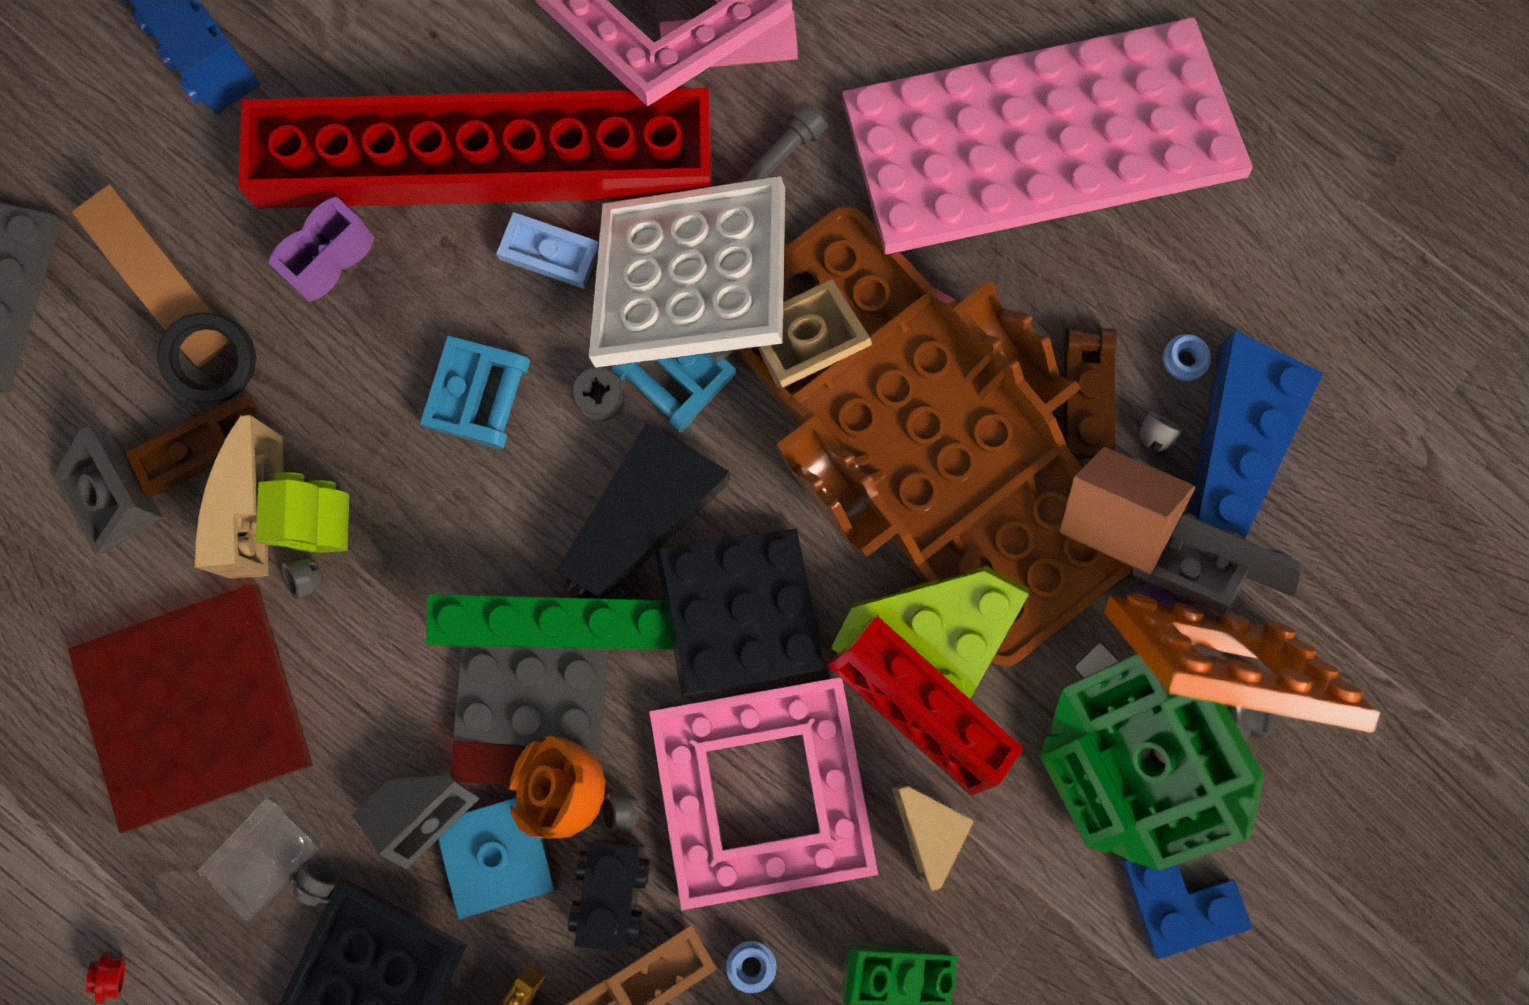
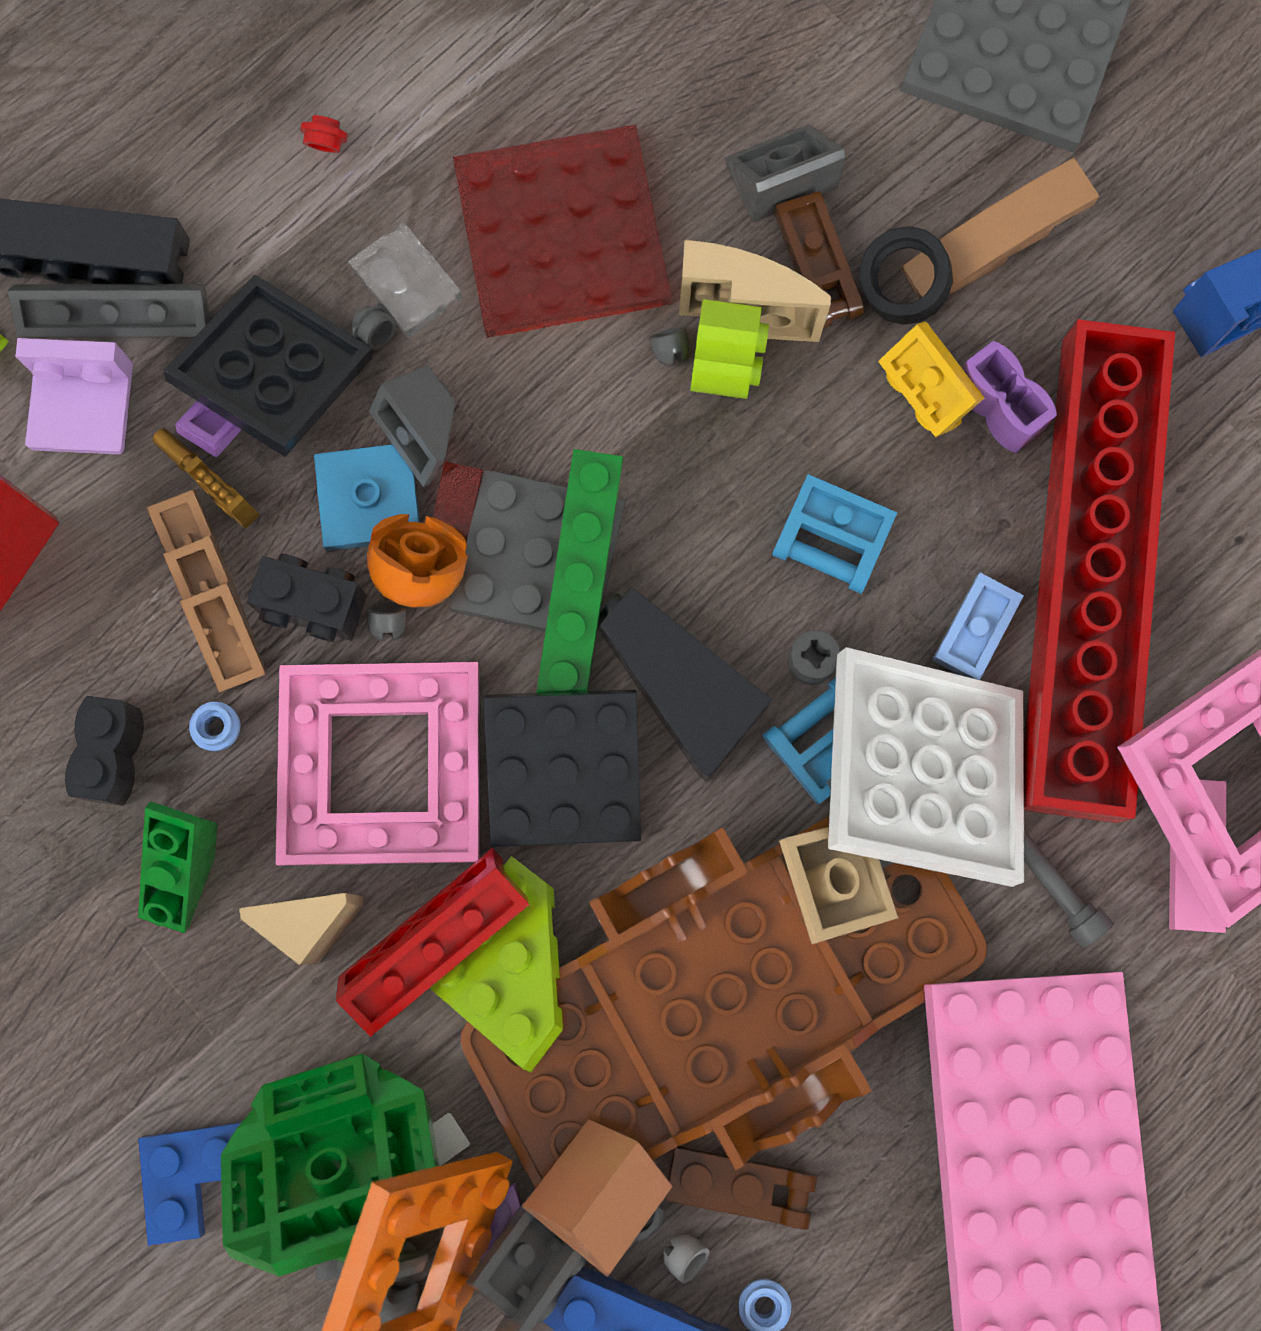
camera: 95 degrees right, 0 degrees up
(312, 319) = (930, 380): none -> yellow bracket

